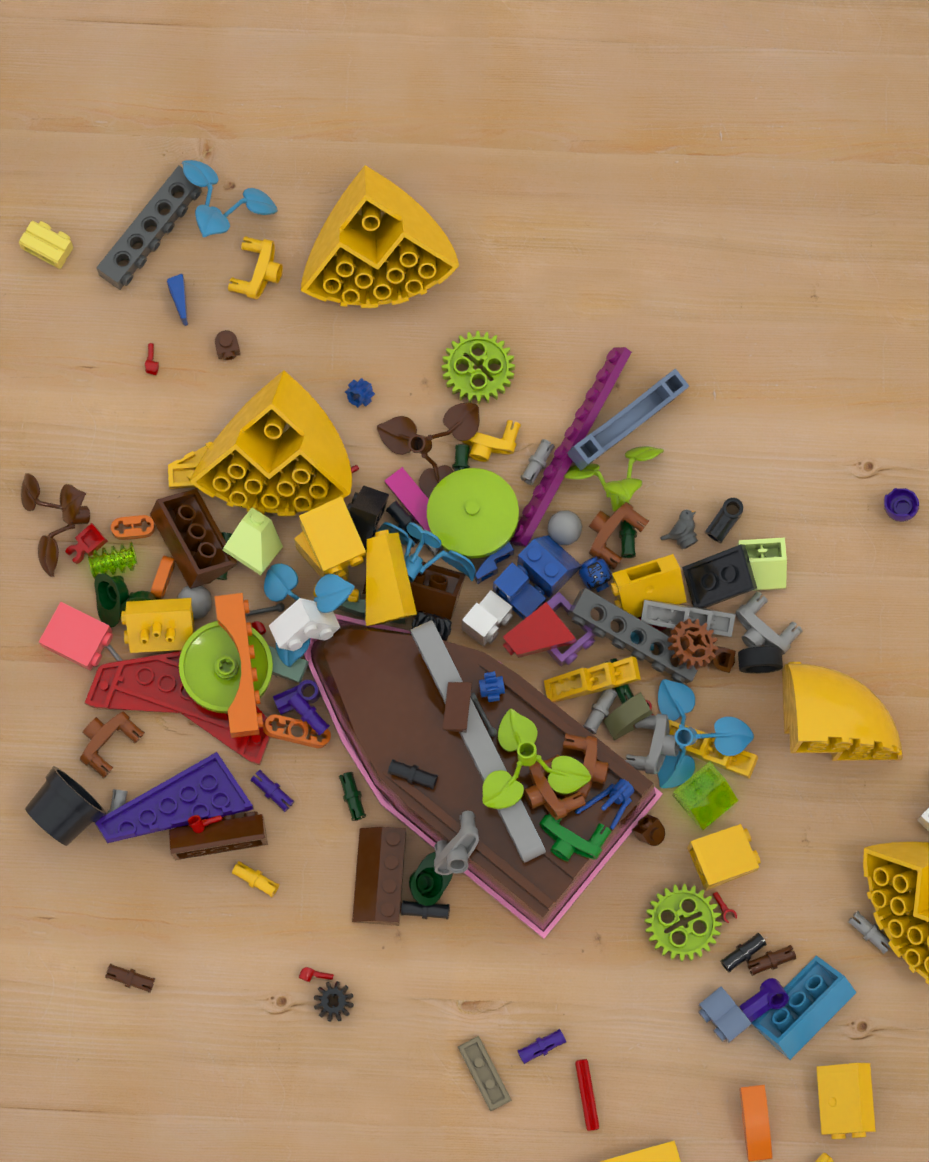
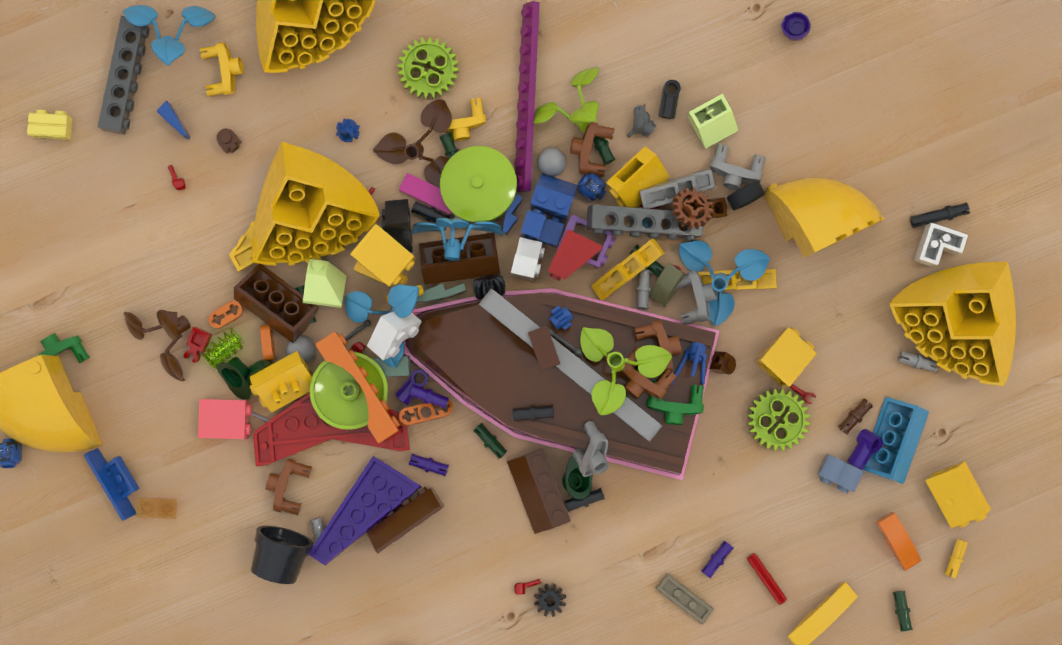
camera: 25 degrees left, 10 degrees up
(198, 825) = (387, 520): red hand -> none
(255, 878) = (448, 536): yellow pin -> none
(387, 580) = (440, 269): yellow slope -> none
(537, 462) = (507, 121): light grey pin -> none
(628, 419) = (561, 56): sand blue arch -> none
(705, 796) = (751, 317): clear neon green slope -> none
(720, 577) = (687, 146): black tile -> none
(743, 952) = (832, 420): black pin -> none

